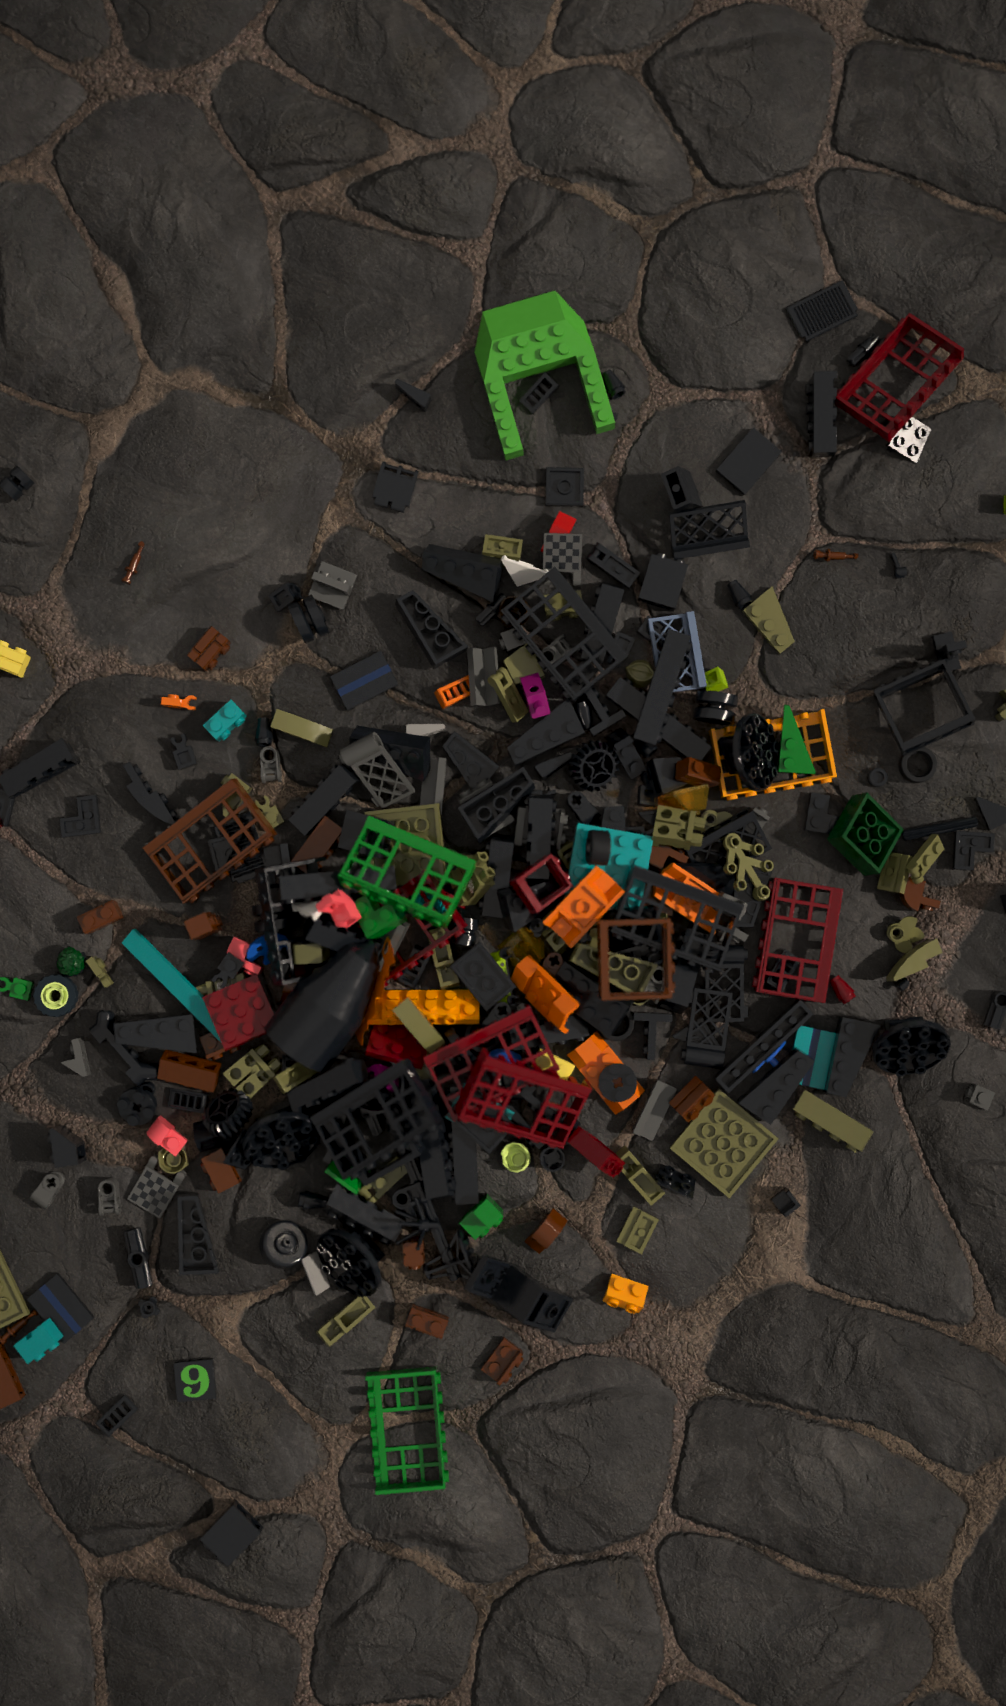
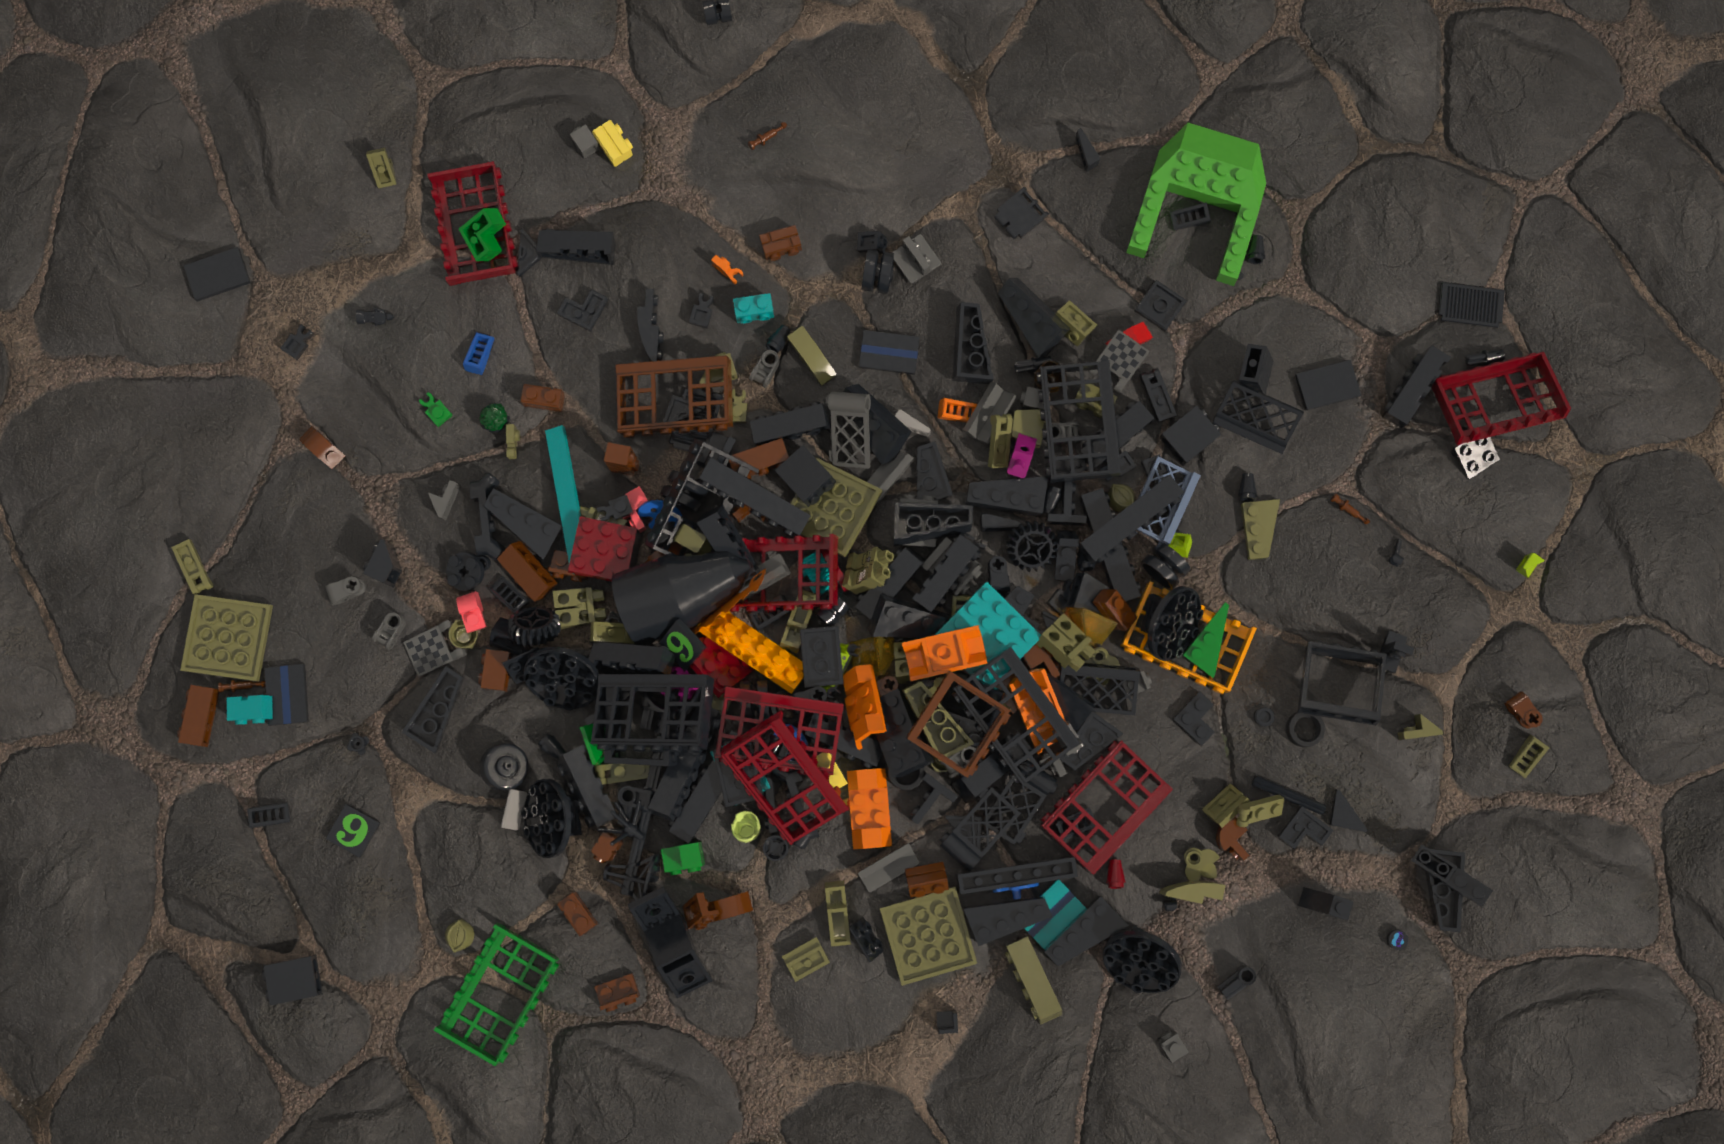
camera: 30 degrees right, 5 degrees down
(16, 931) = (477, 365): none -> blue slope
(44, 991) = (457, 426): black wheel -> none
(140, 1270) = (372, 708): black piece -> none
(307, 909) = (720, 503): white tile -> none
(340, 907) = (743, 519): coral brick -> none
(342, 1404) = (459, 935): none -> olive hat
(344, 1320) = (511, 866): olive slope -> none
(363, 1046) = (683, 644): none -> black tile
(377, 920) = (766, 549): green brick -> none
(402, 904) = (793, 543): green window -> none
(418, 1025) = (741, 658): olive slope -> none
(522, 572) = (1078, 349): white tile -> none
(524, 1254) = (697, 912): none -> reddish brown bracket
(526, 893) = (904, 609): dark red window -> none
(533, 926) = (894, 650): black plate -> none
(596, 1152) = (816, 867): dark red window -> none
(598, 847) = (990, 611): black tyre -> none
(625, 1294) = (758, 1007): light orange bracket -> none
(628, 1080) = (883, 827): black plate -> none
(745, 865) = (1104, 712): olive plant -> none
(865, 834) = (1222, 756): dark green slope -> none

